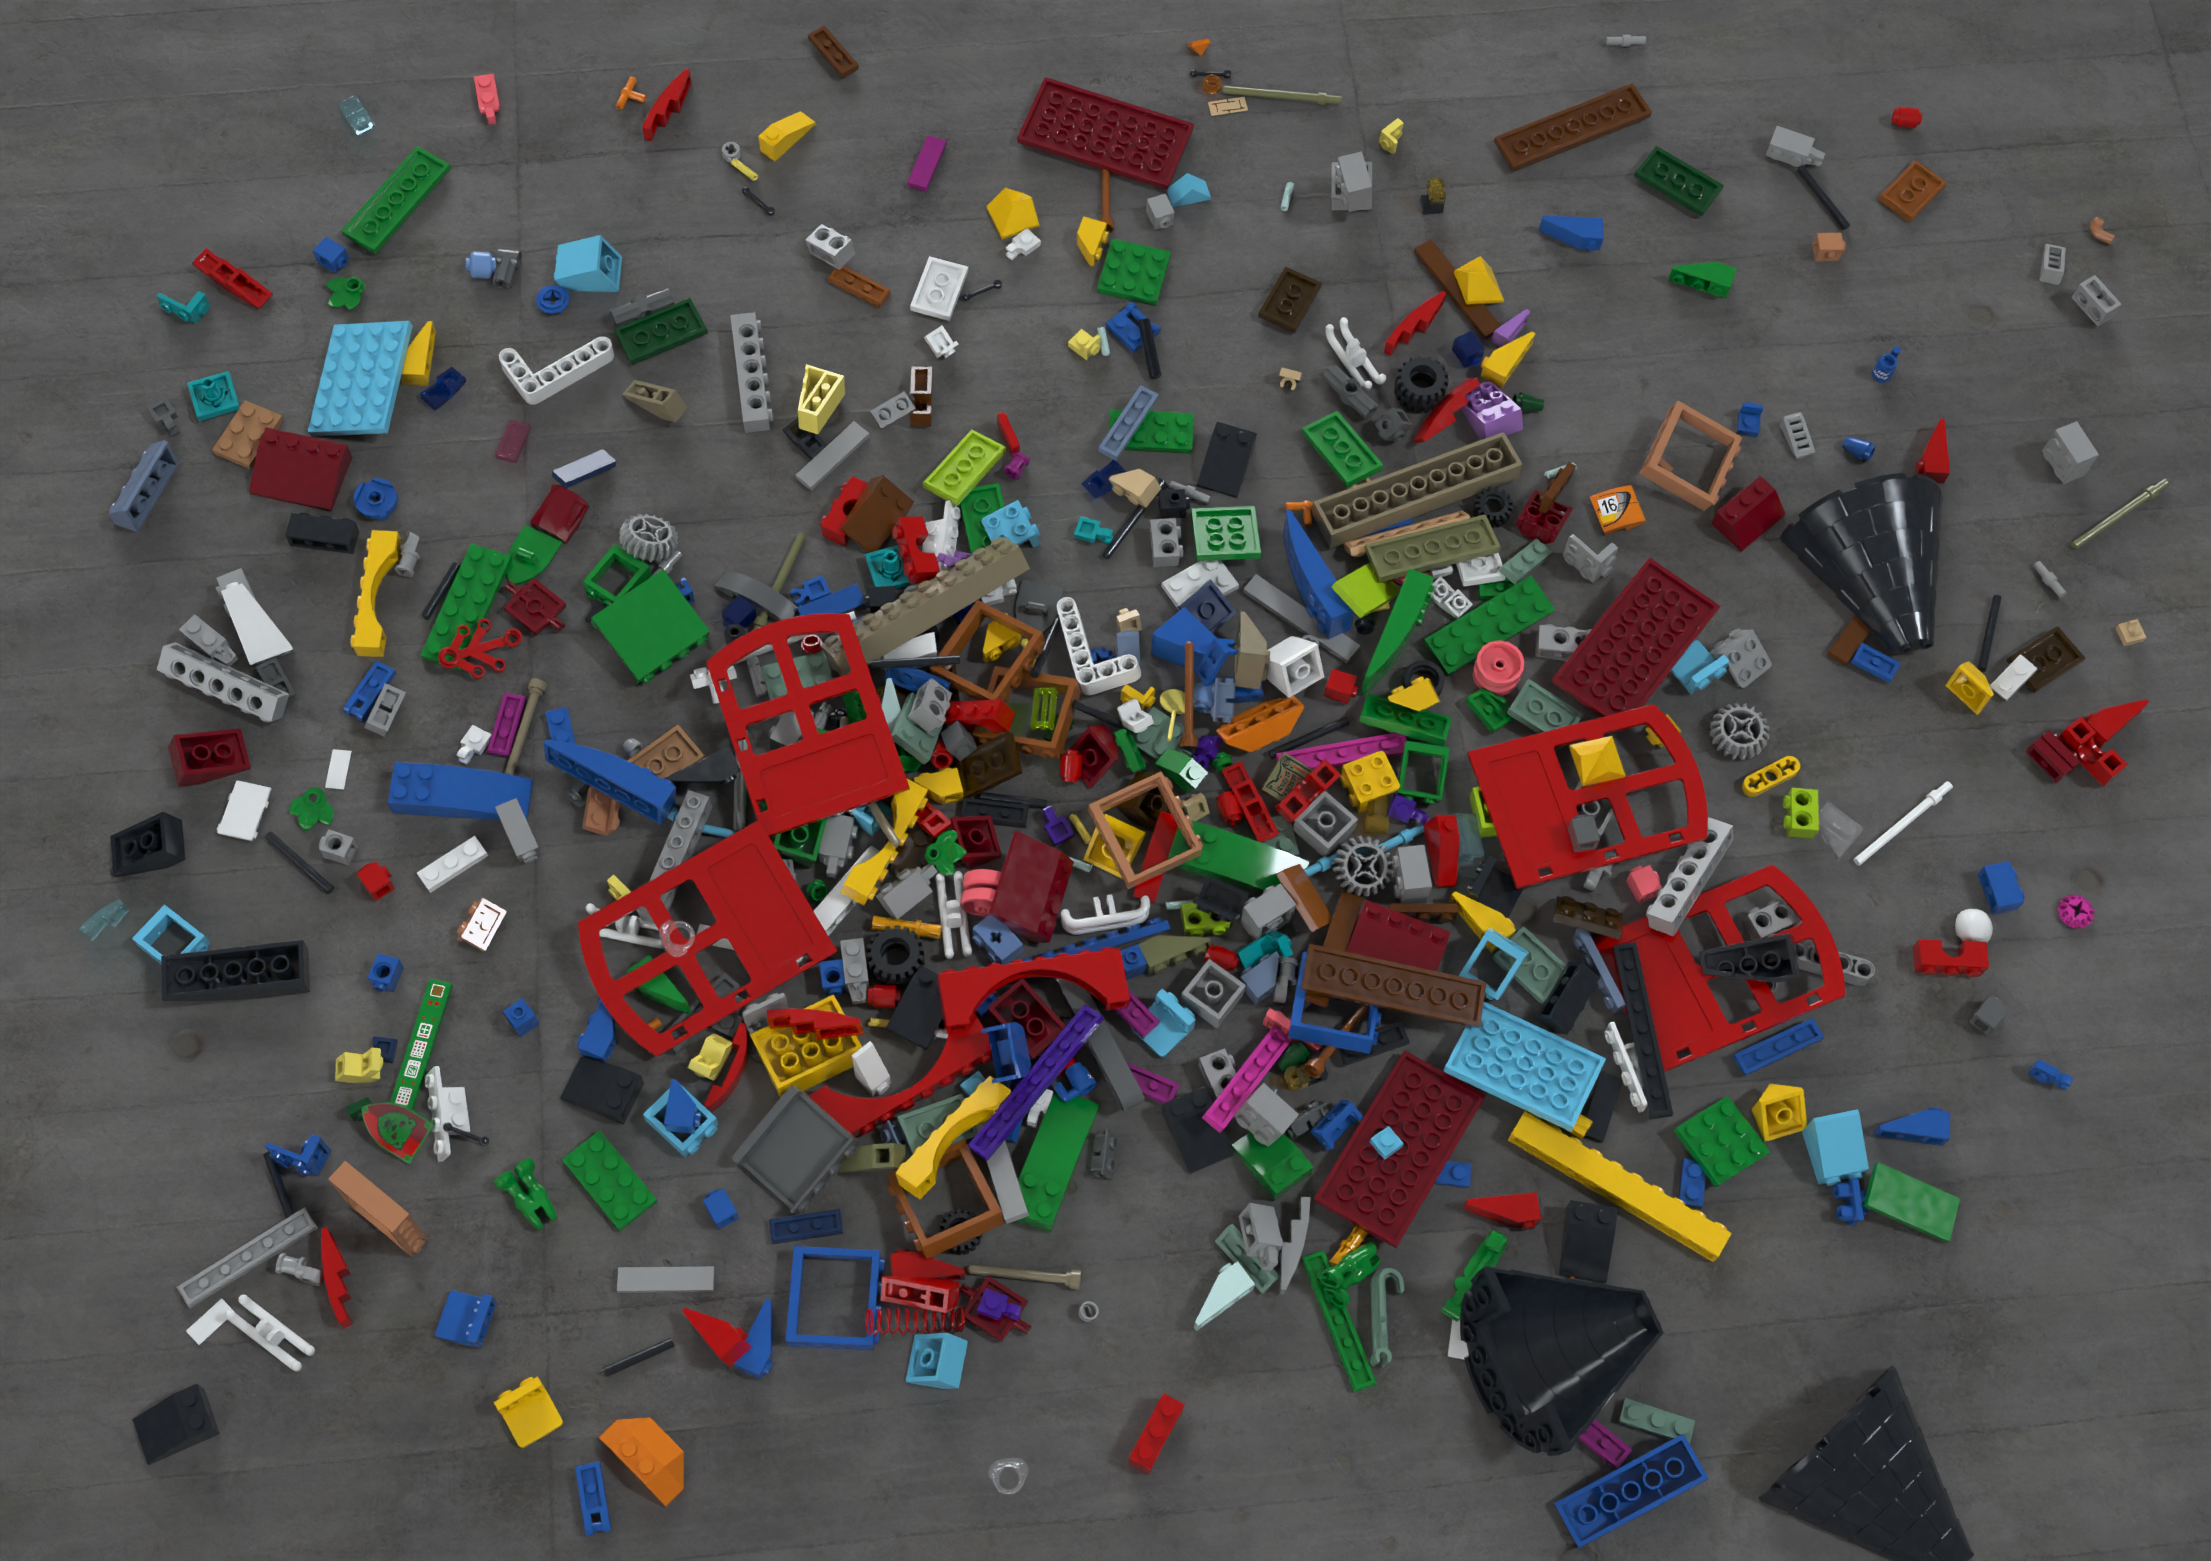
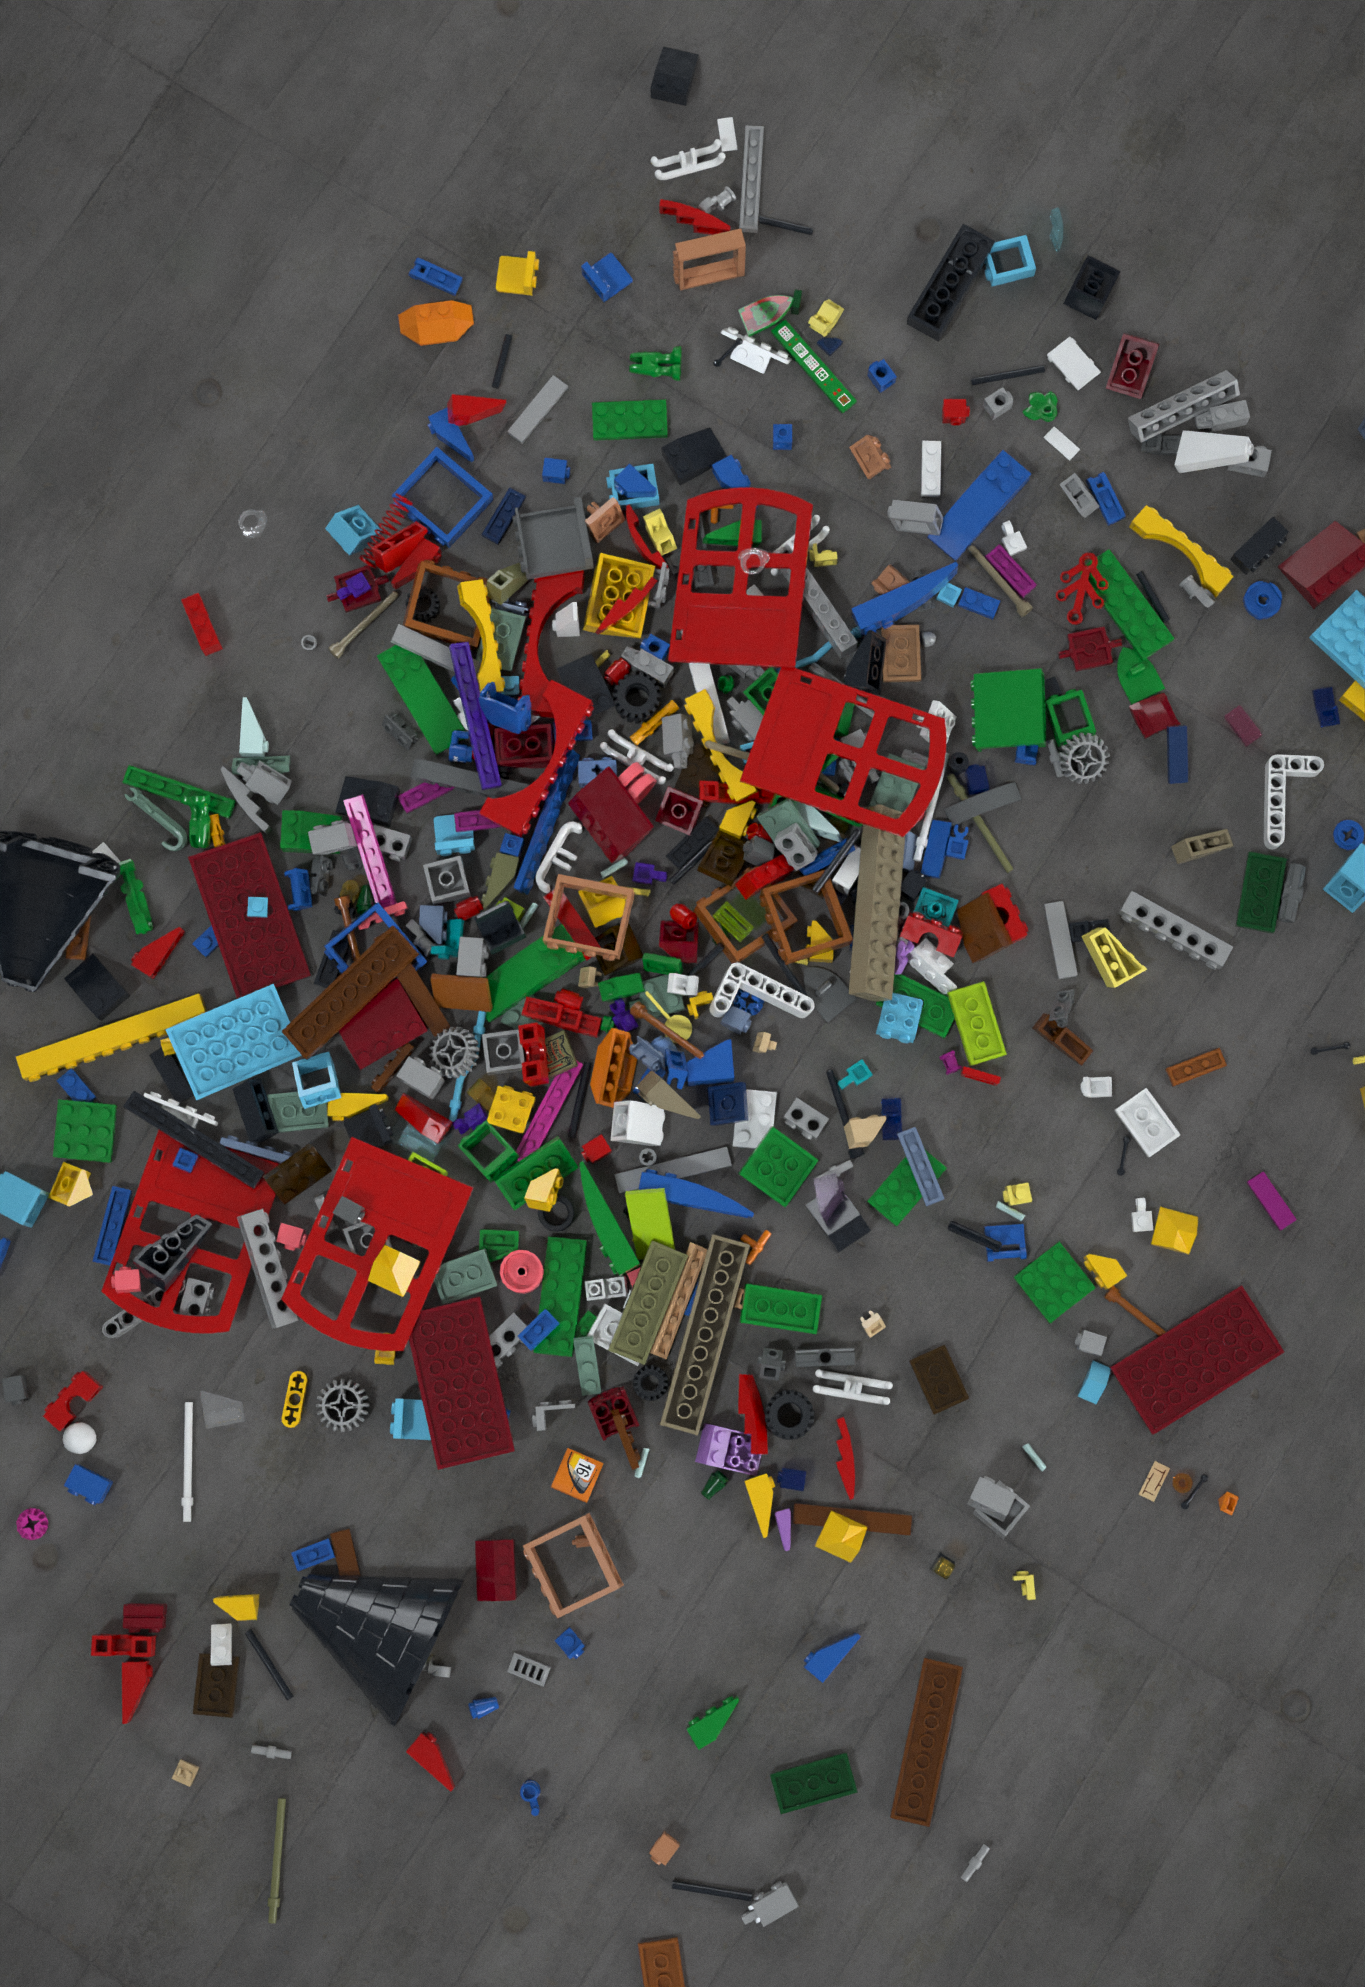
camera: 135 degrees right, 15 degrees up
(309, 1162) = (786, 240): blue bracket -> none
(737, 1121) = (604, 519): none -> nougat tile
(830, 246) = (1242, 1064): light grey brick -> none
(947, 853) = (682, 778): green plate -> none
(1173, 503) = (832, 1150): black brick -> none
(1214, 477) = (828, 1194): none -> clear purple slope
(1320, 98) = (1104, 1560): olive bar -> none
(1535, 613) = (538, 1329): none -> blue plate
(1666, 1023) = (185, 1160): none -> blue tile
(1745, 655) = (395, 1459): light grey bracket -> none
(1807, 814) = (248, 1396): lime brick -> none
(1817, 976) = (126, 1280): none -> coral brick
(2070, 452) = (348, 1862): light grey brick -> none

